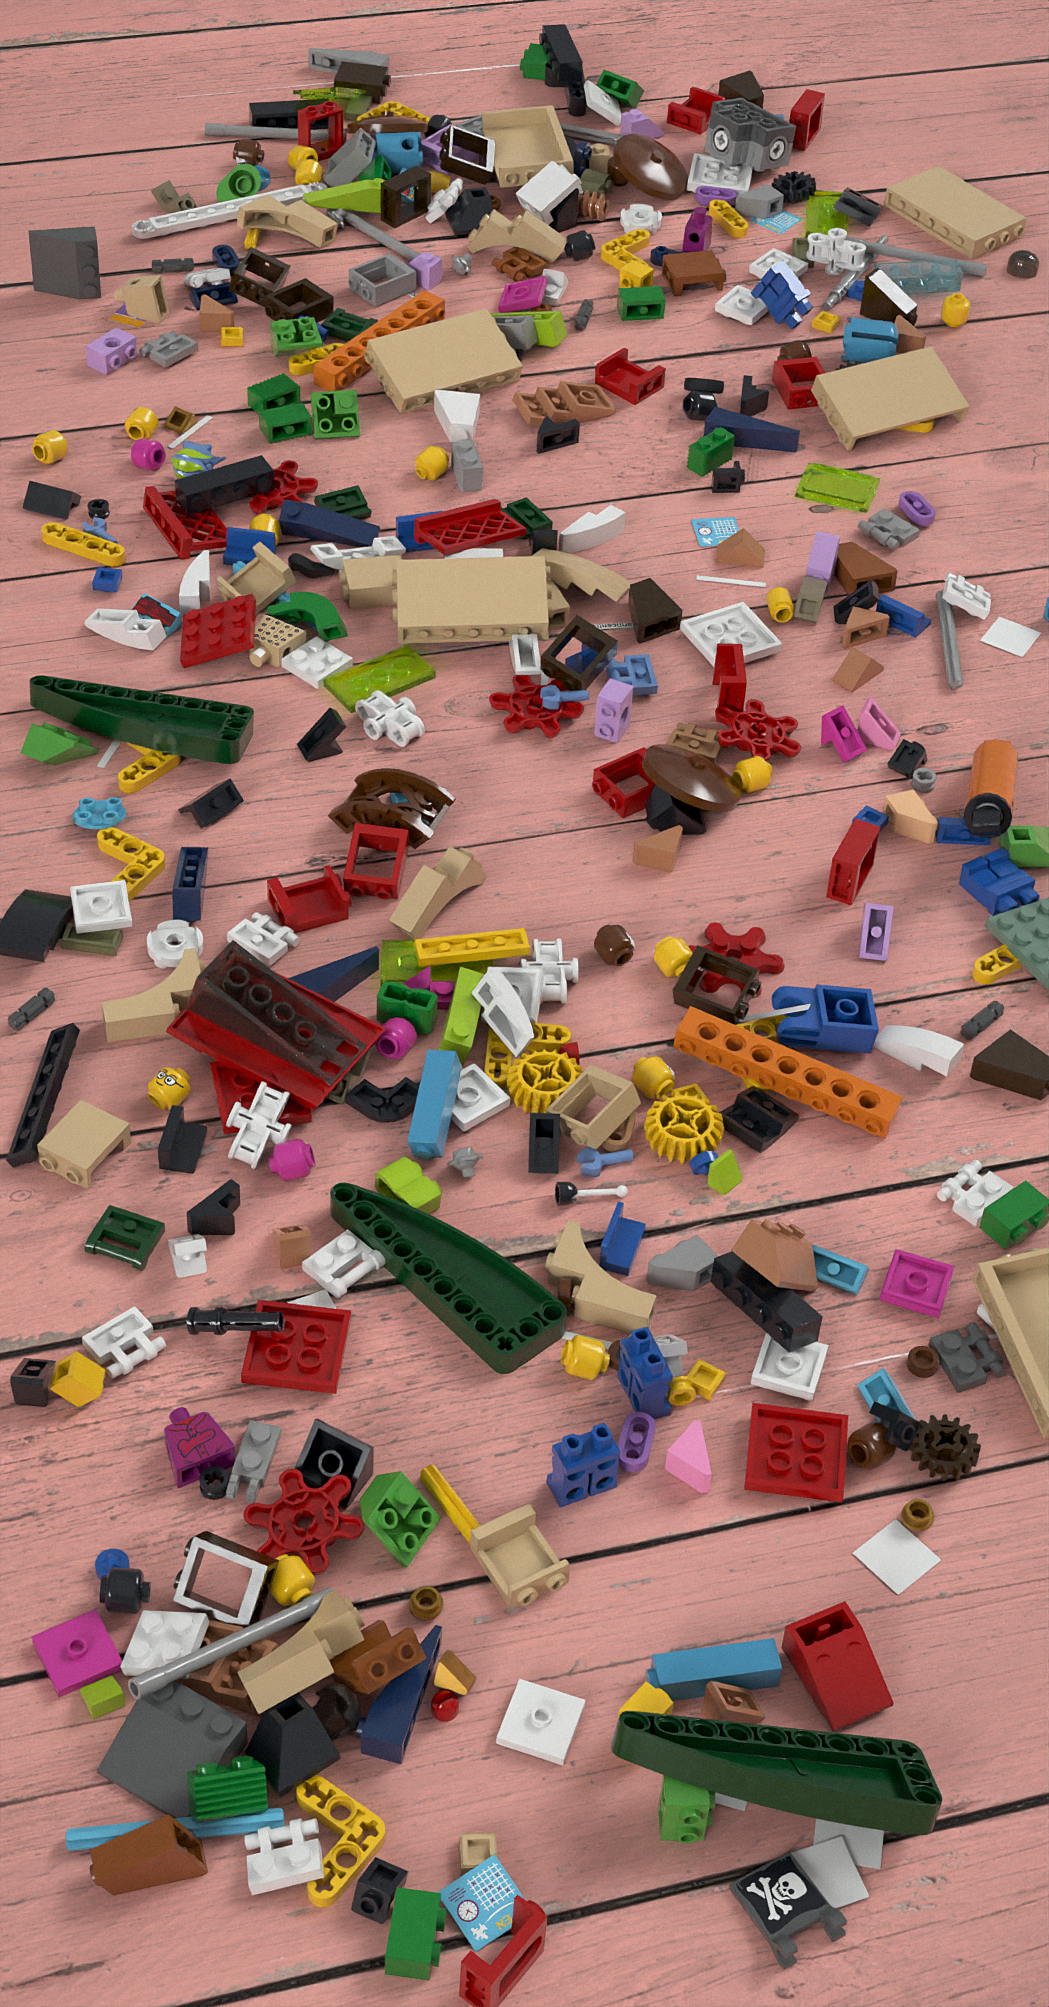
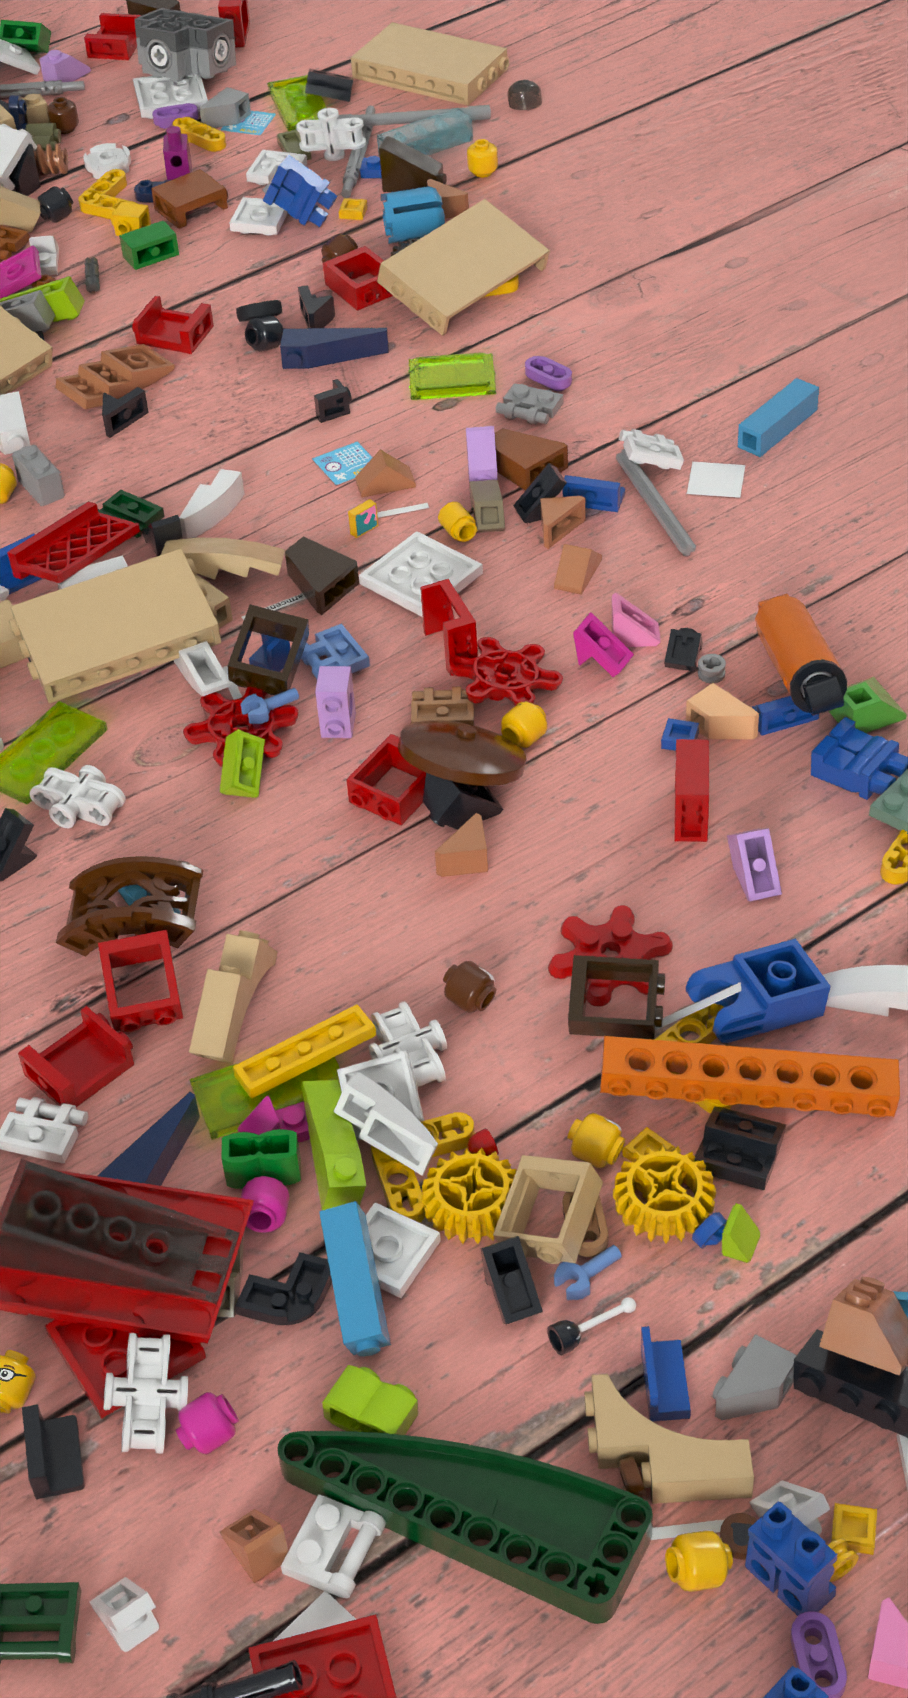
camera: 15 degrees left, 0 degrees up
(215, 1212) = (136, 1542): black slope -> none
(464, 1160) = (422, 1339): light grey plant -> none
(522, 734) = (242, 764): none -> lime slope
(650, 166) = (94, 103): reddish brown dish -> none
(672, 956) = (545, 977): yellow head -> none
(706, 578) = (363, 518): none -> tile
(710, 451) = (300, 378): green brick -> none
(795, 186) = (255, 81): black gear -> none

